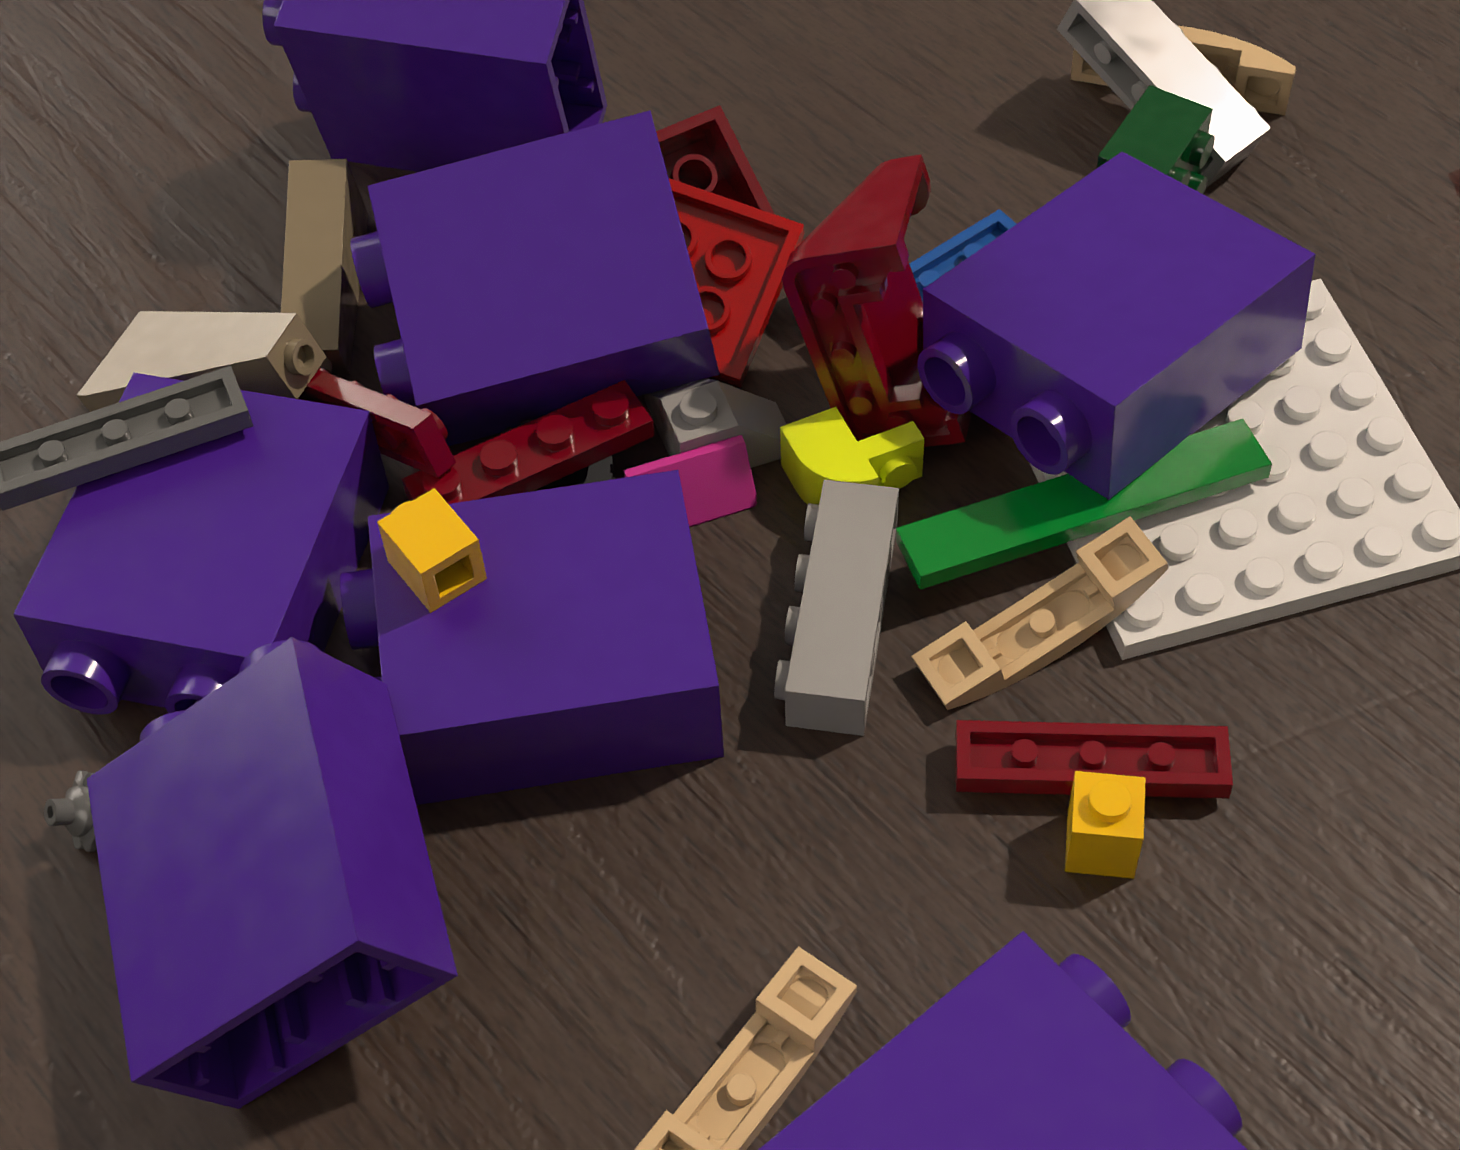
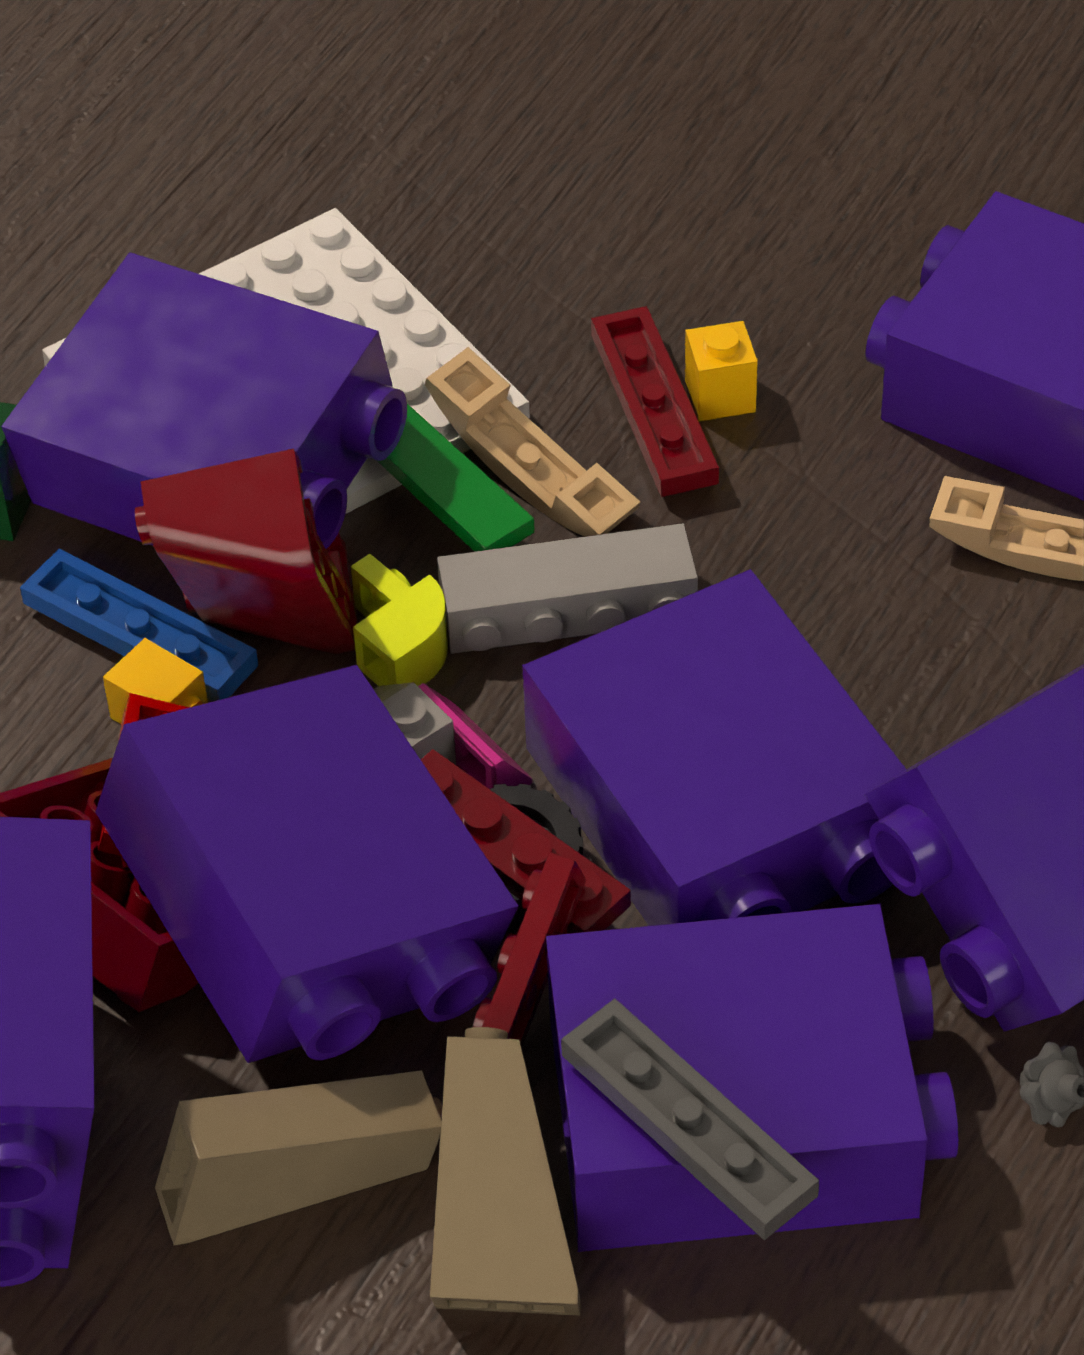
camera: 110 degrees left, 5 degrees down
(432, 549) = (718, 787): yellow brick -> none

